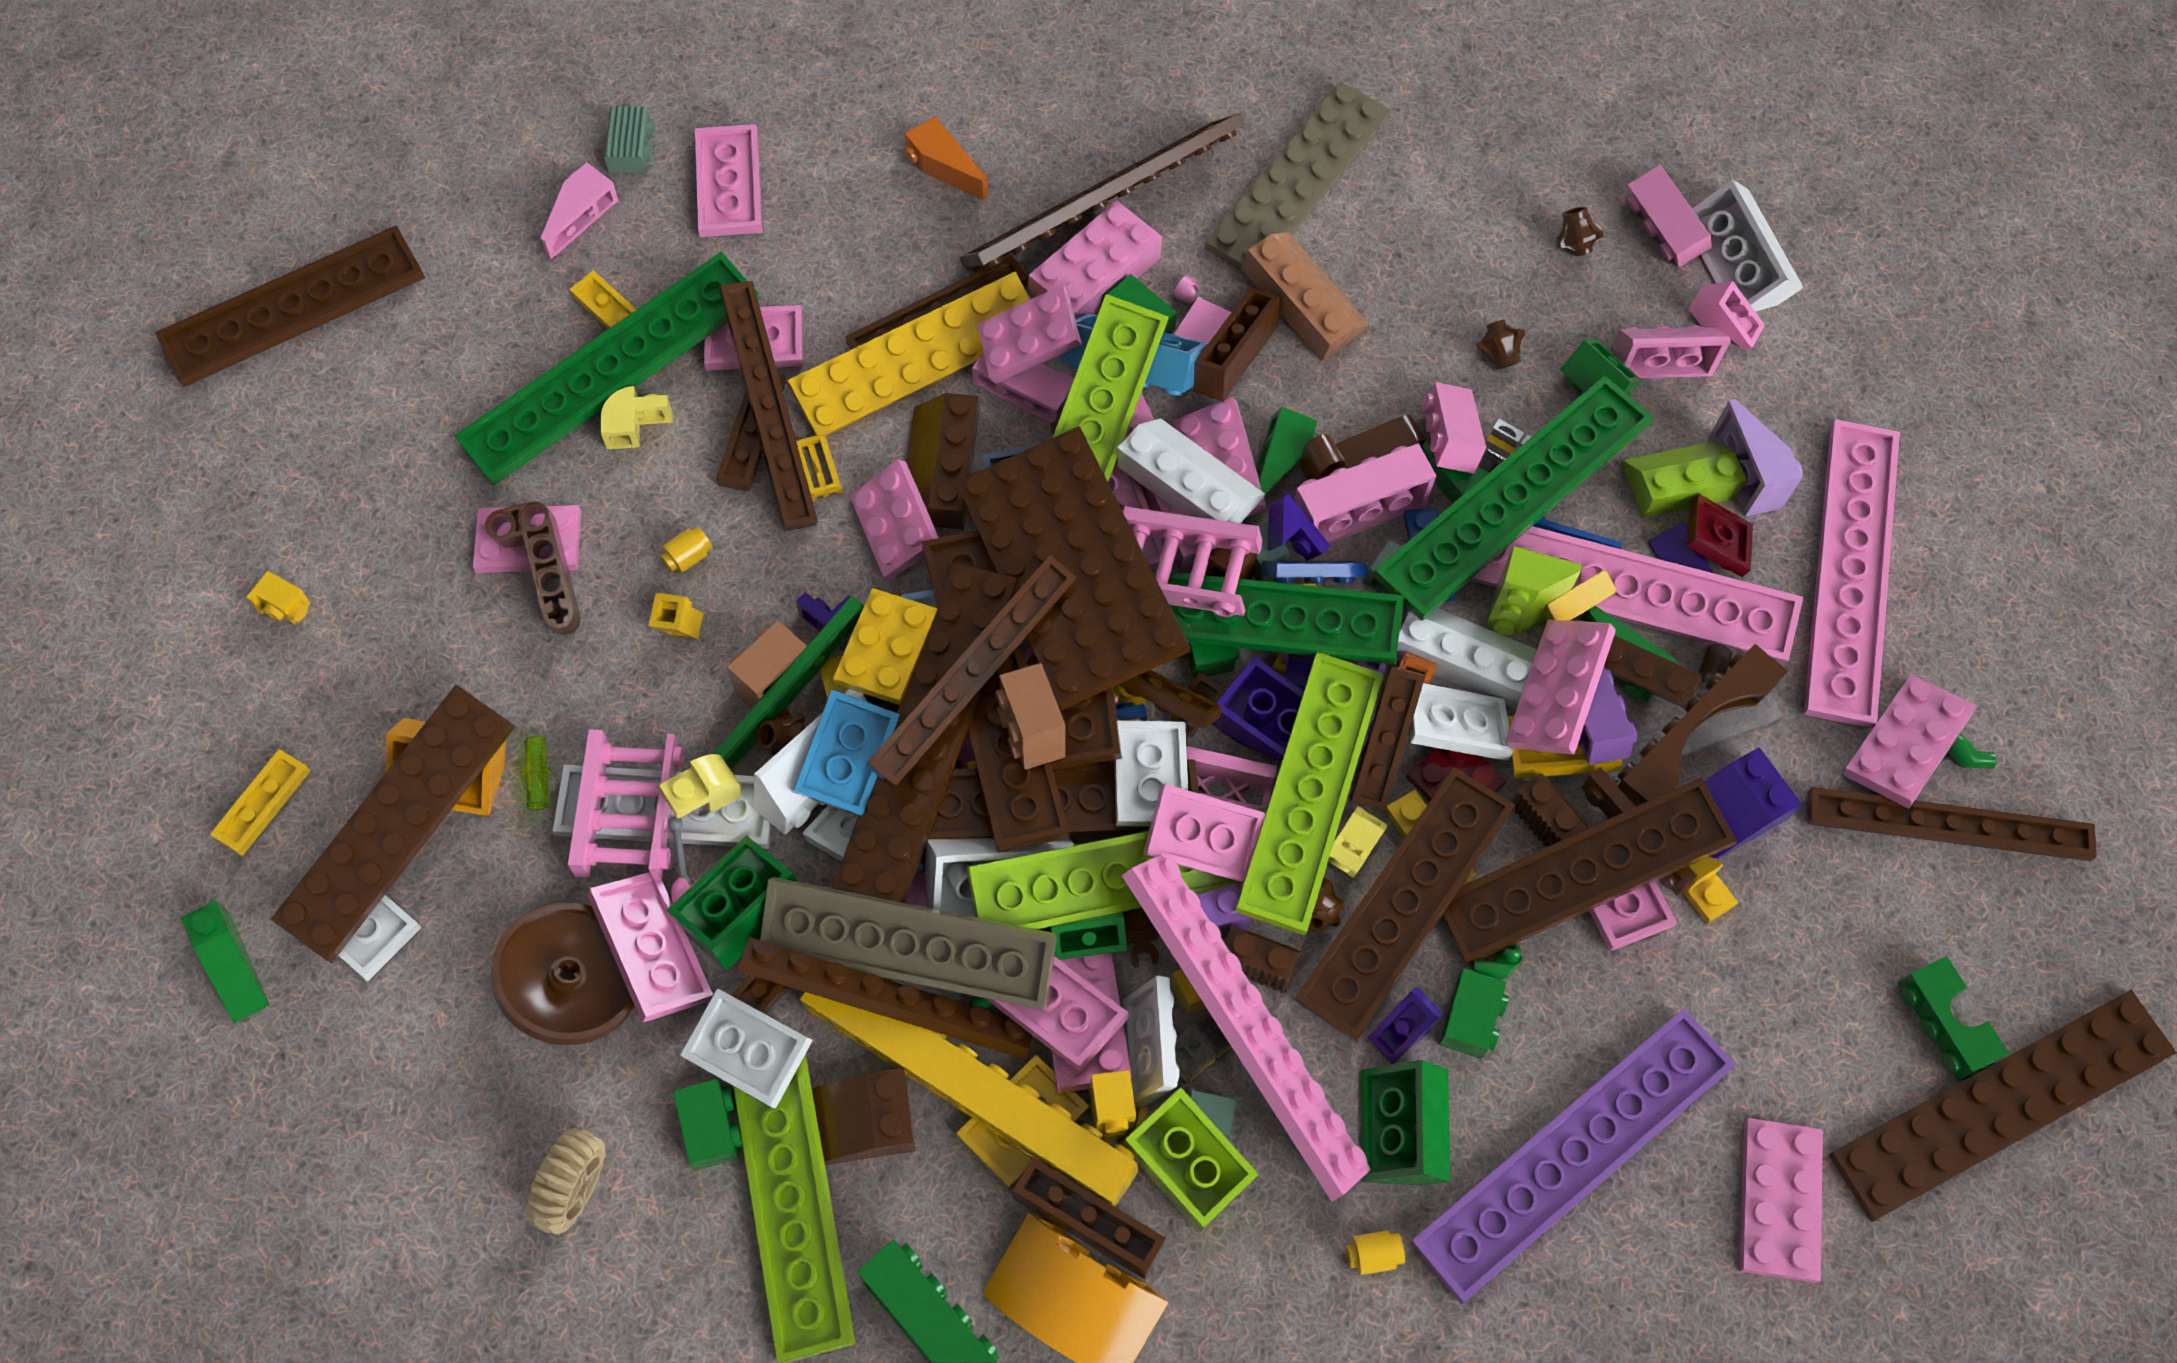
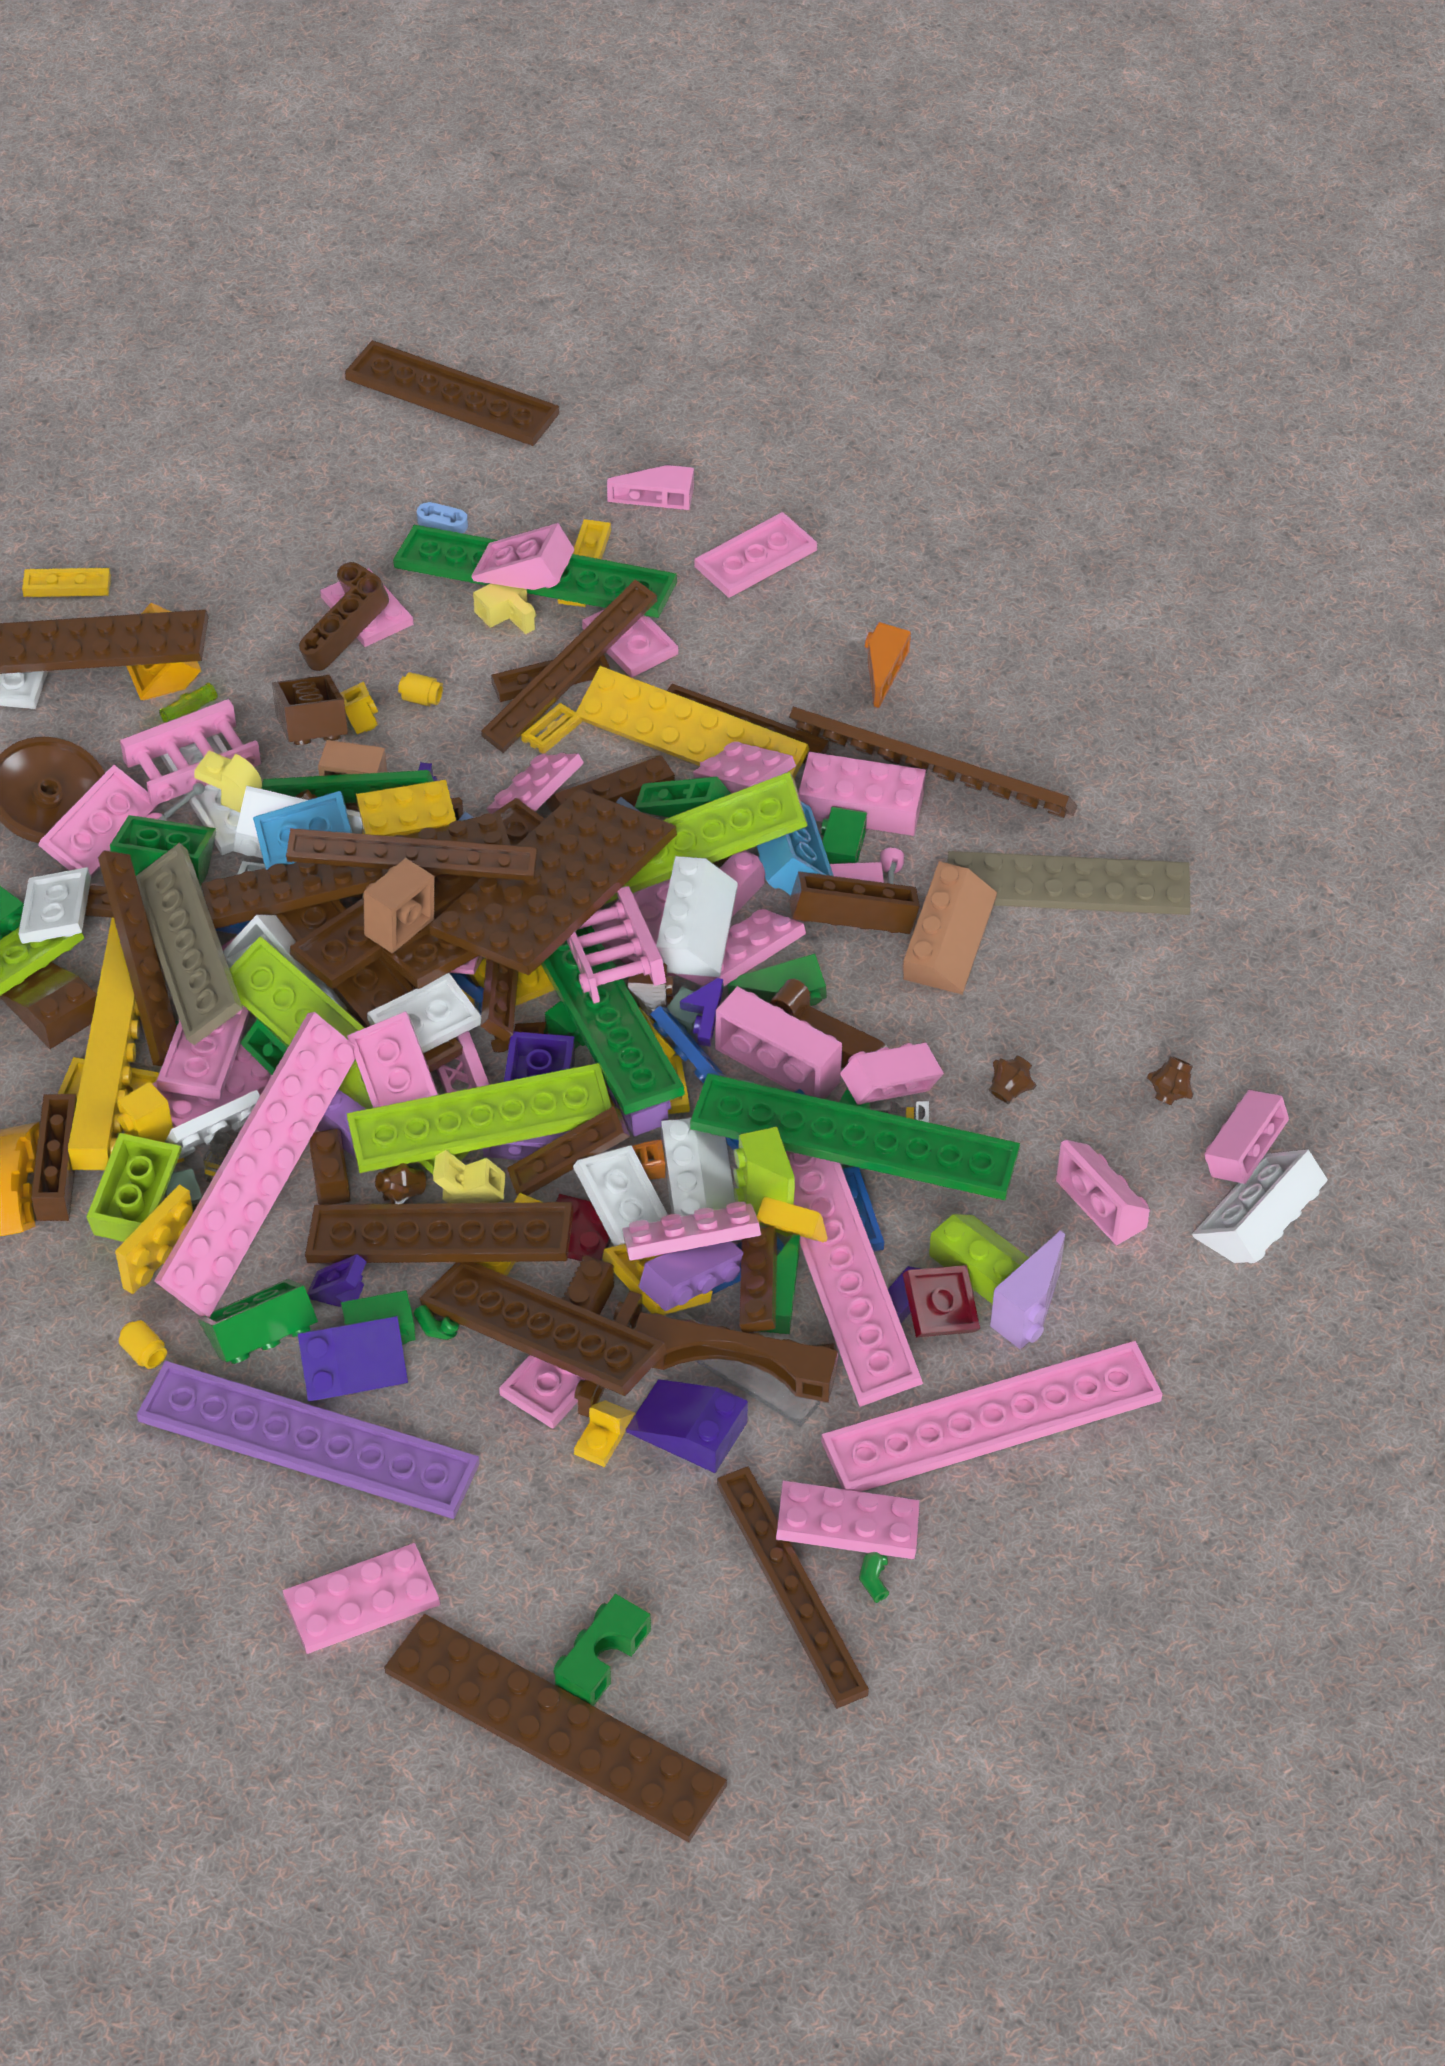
camera: 60 degrees right, 15 degrees down
(279, 599) = (219, 508): yellow brick -> none
(460, 407) = (442, 517): none -> light blue beam
(602, 365) = (527, 559): none -> bright pink slope
(629, 139) = (740, 483): sand green brick -> none
(661, 660) = (310, 709): none -> reddish brown brick
(1024, 404) = (679, 796): none -> green slope
(1280, 1202) = (153, 1240): none -> yellow plate
(1515, 1067) = (352, 1358): none -> dark purple slope
(1594, 361) = (1038, 1154): green brick -> none
(1729, 311) = (1179, 1222): bright pink arch -> none

